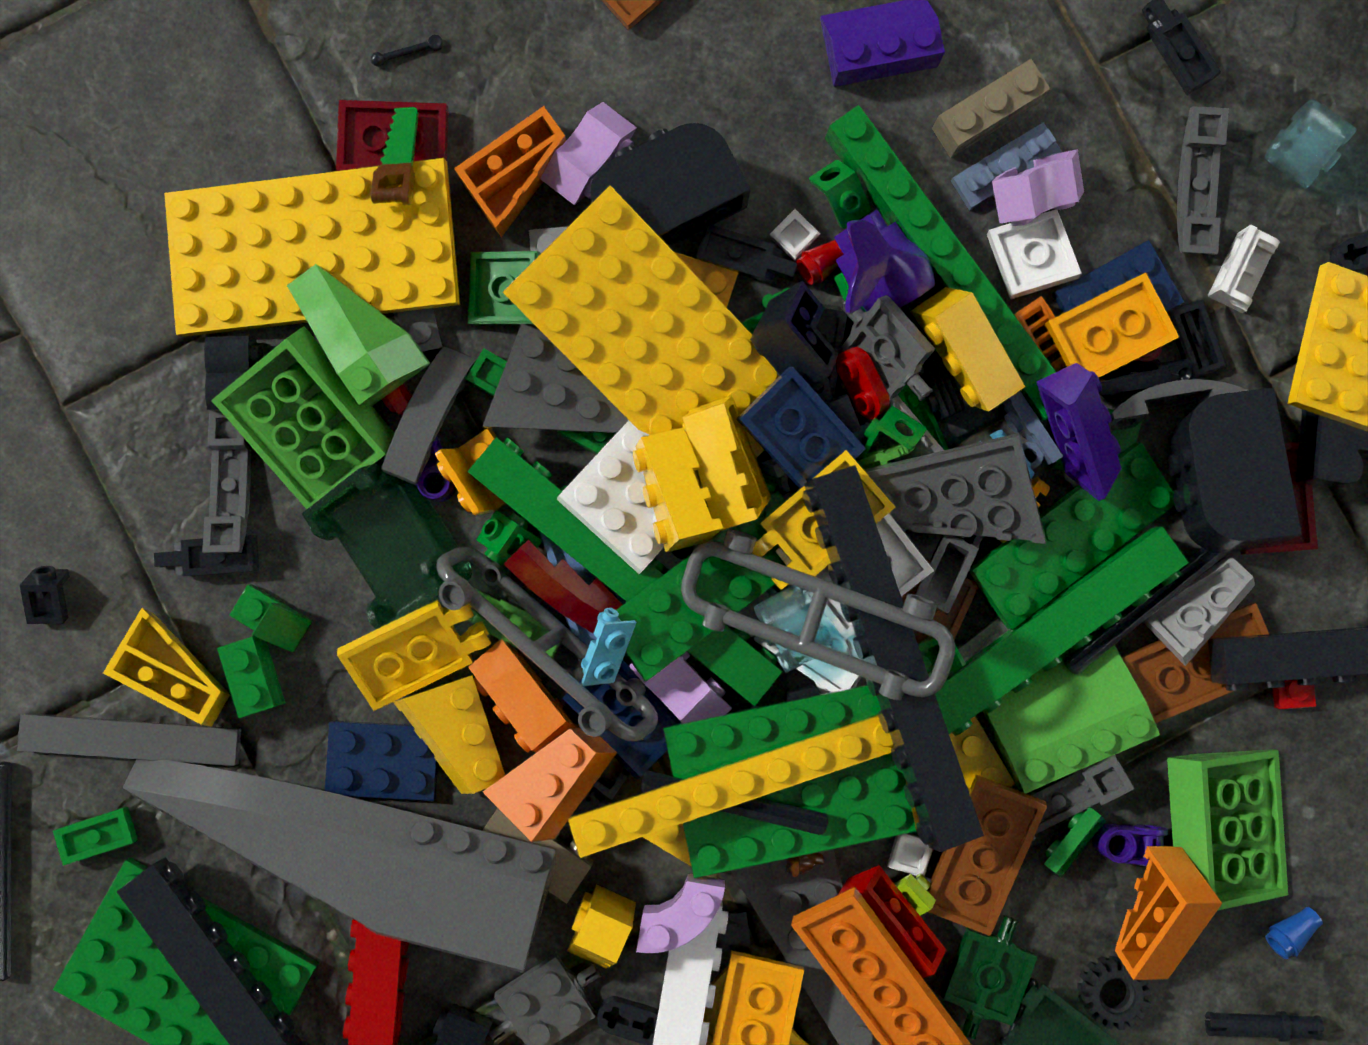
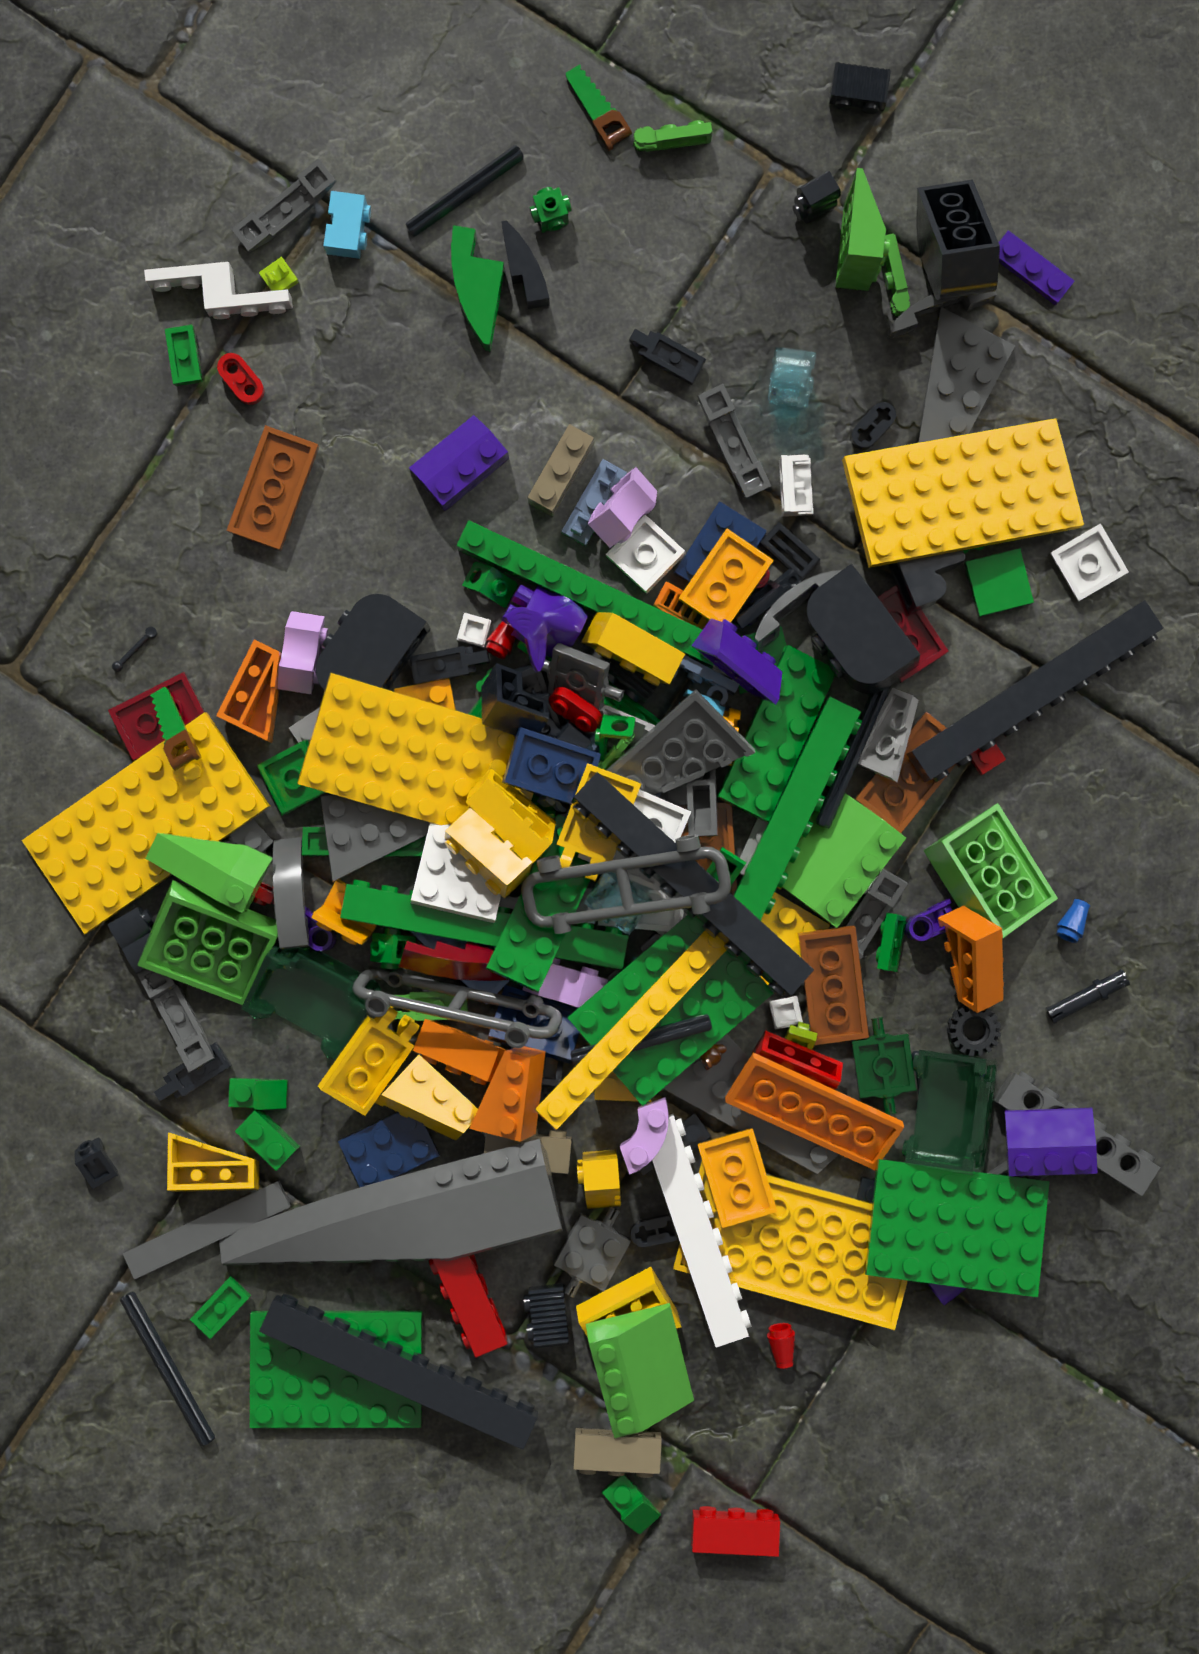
camera: 30 degrees left, 0 degrees up
(606, 652) = (501, 985): medium azure hinge -> none

